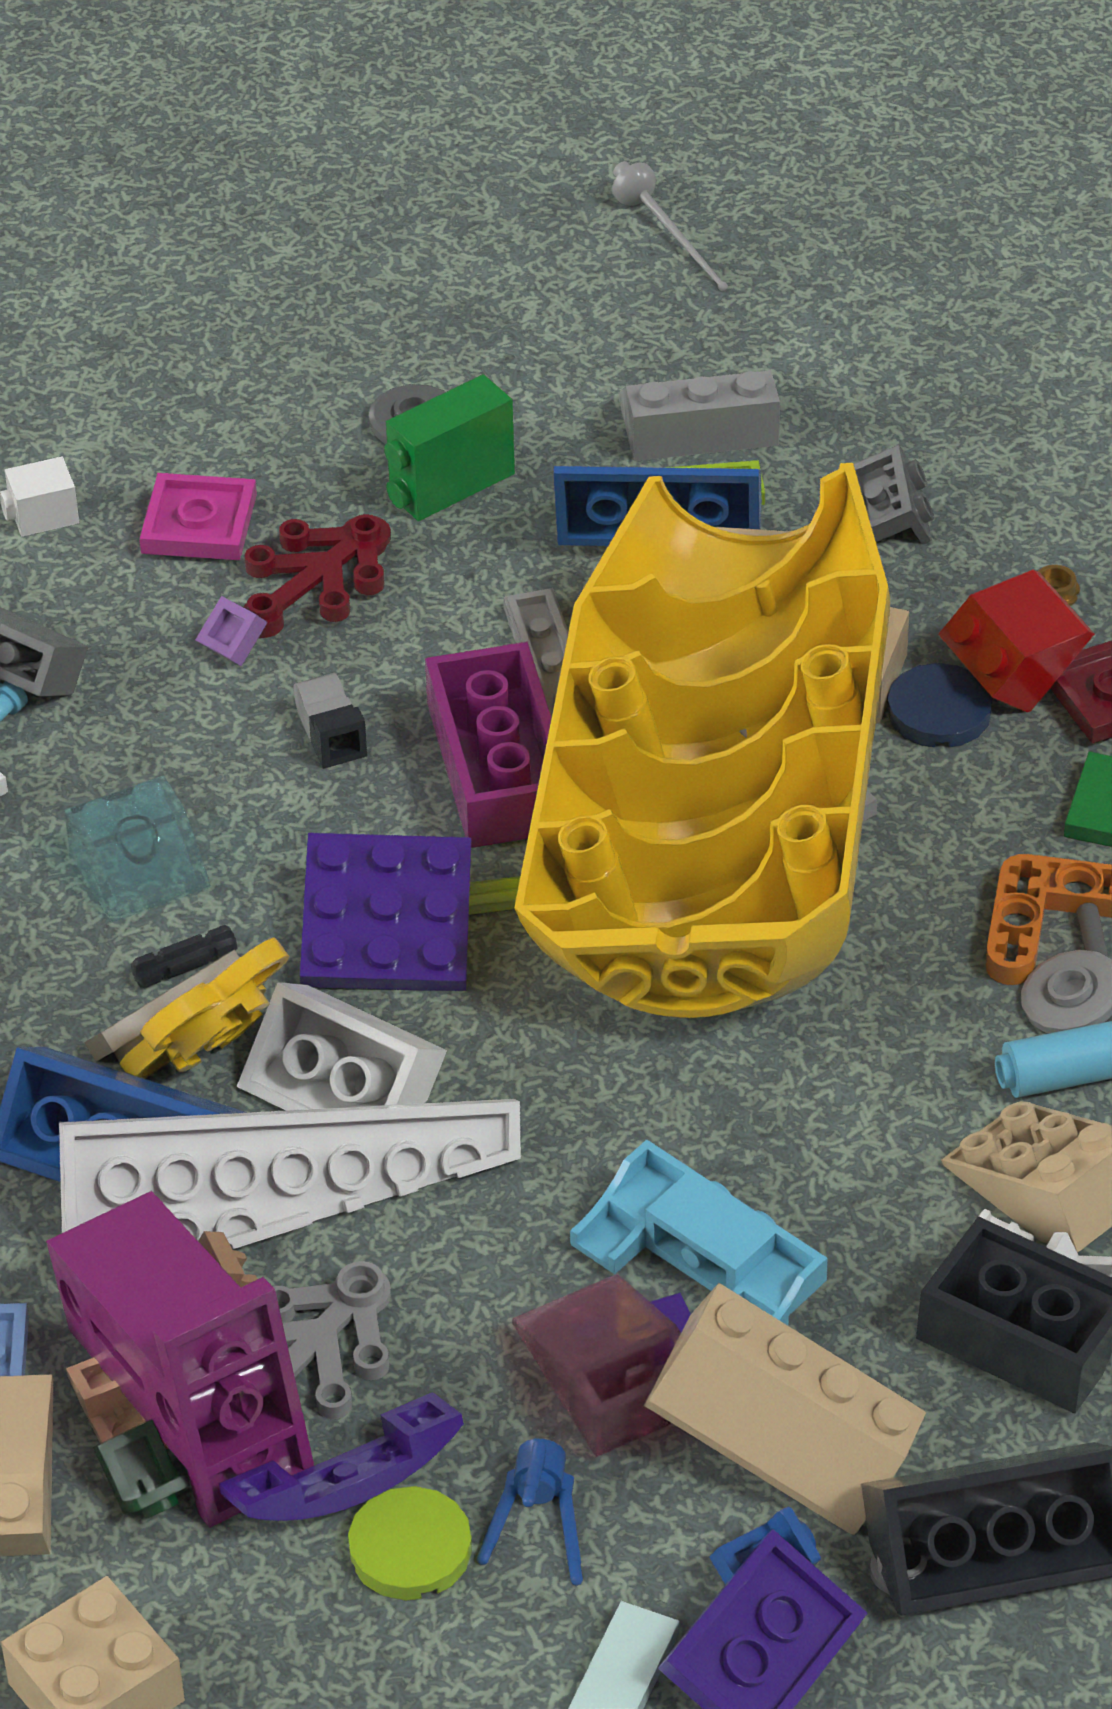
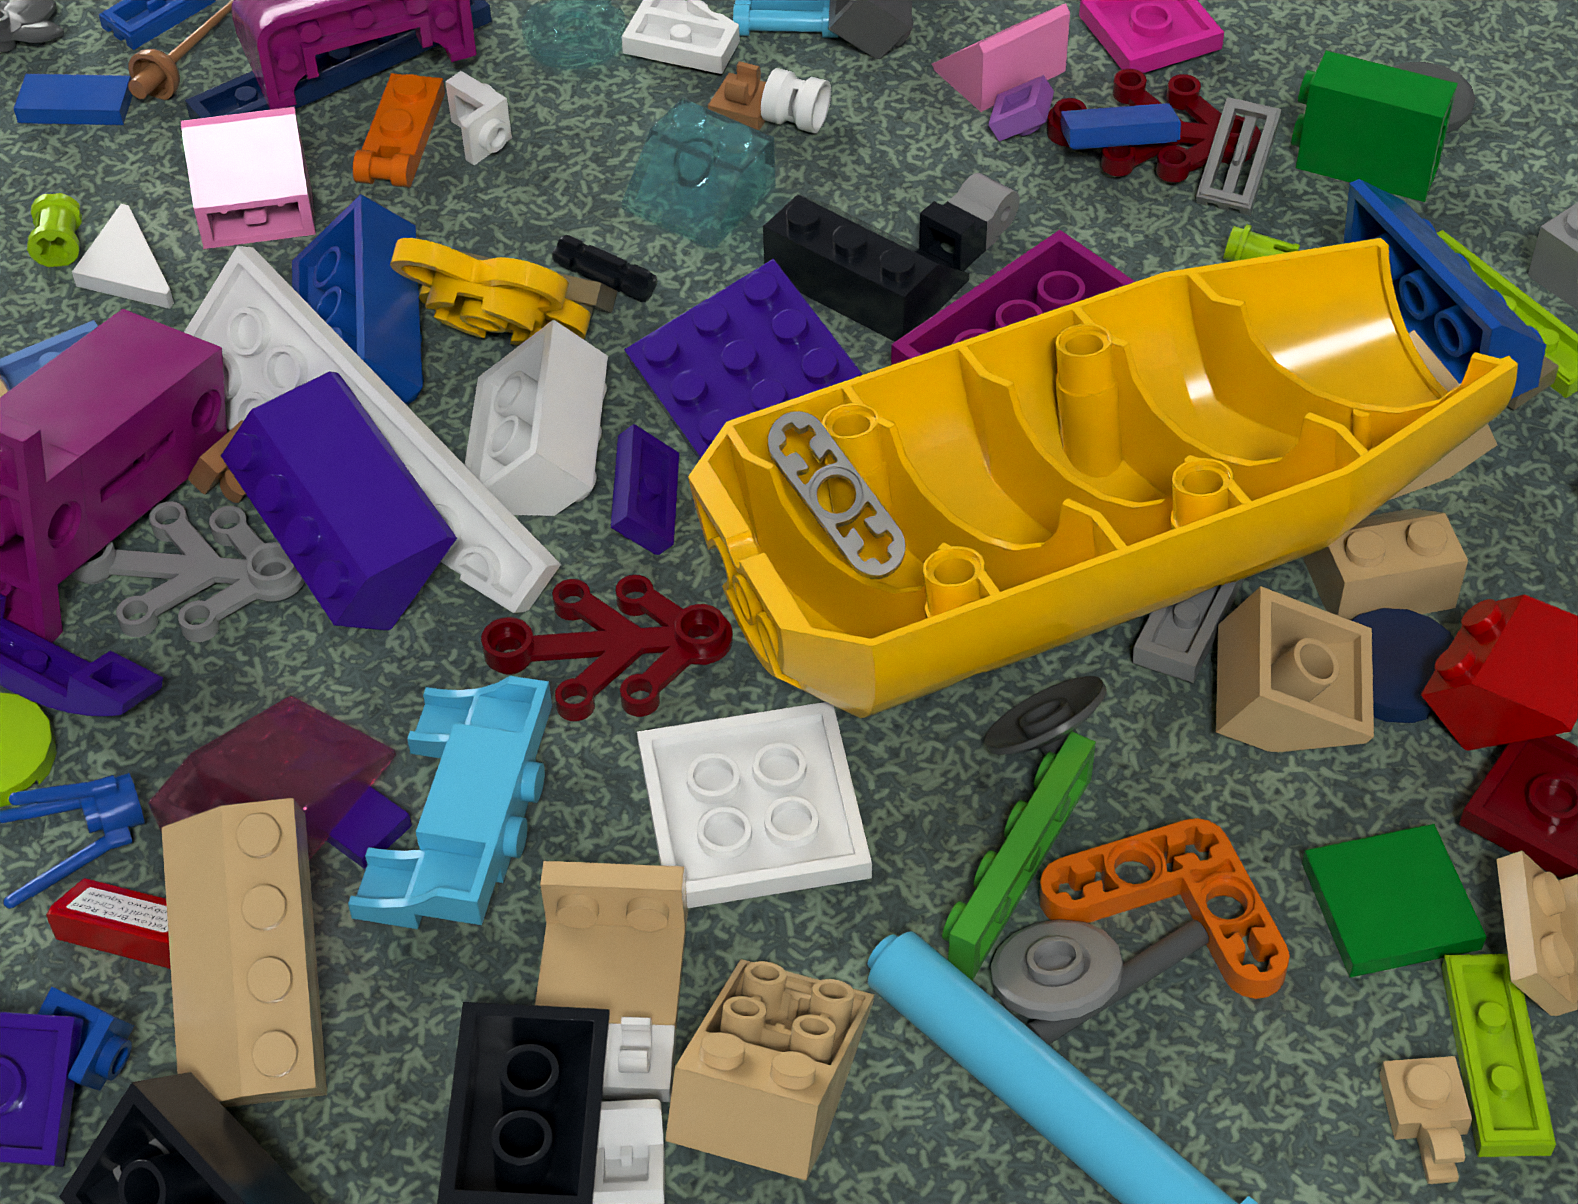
camera: 60 degrees right, 5 degrees up
(54, 789) = (741, 96): none -> medium nougat tile
(98, 756) = (795, 100): none -> white wheel
(155, 612) = (1009, 58): none -> bright pink slope
(314, 582) = (1120, 126): none -> blue tile
(346, 796) = (858, 267): none -> black slope
(353, 1195) = (339, 502): none -> dark purple slope
(393, 543) = (1227, 198): none -> light grey tile
(445, 1019) = (645, 490): none -> dark purple plate
(494, 582) = (1248, 244): none -> lime pin
(620, 887) = (821, 446): none -> light grey beam
(627, 1059) = (615, 644): none -> dark red plant
(659, 1504) = (113, 921): none -> slope
(817, 1091) = (755, 804): none -> white plate
(878, 891) = (1046, 717): none -> dark grey dish
(891, 1218) = (613, 938): none -> tan bracket
(928, 756) = (1293, 676): none -> tan slope
(966, 958) = (1029, 835): none -> bright green plate

